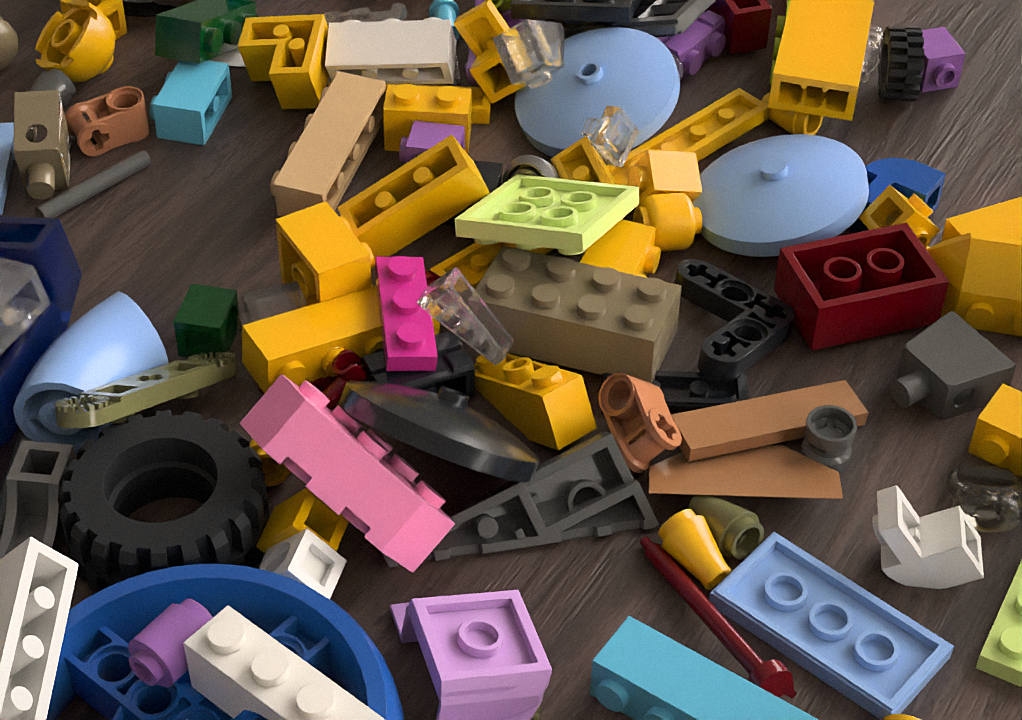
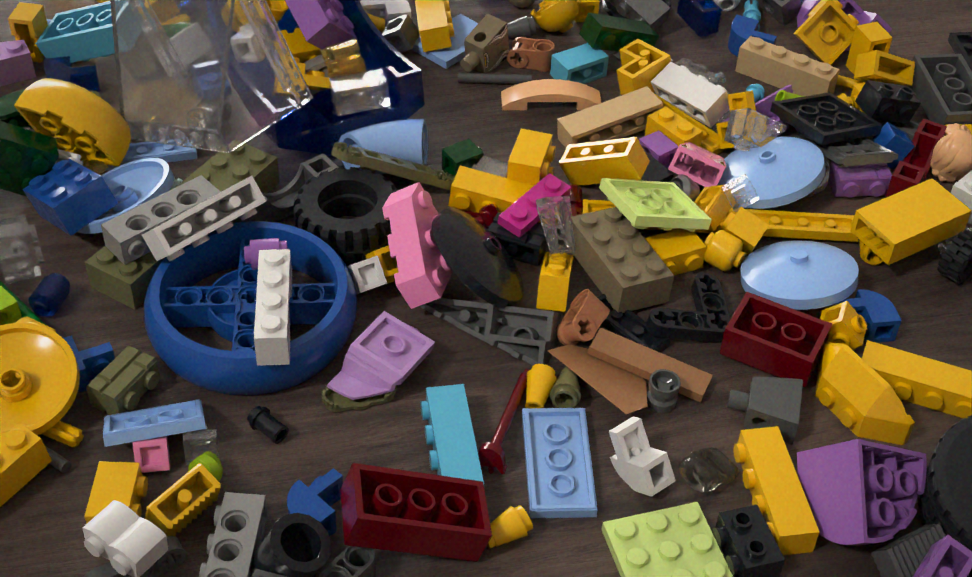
camera: 45 degrees right, 0 degrees up
(166, 182) = (549, 90): none -> light nougat slope
(507, 135) = (698, 164): none -> bright pink torso

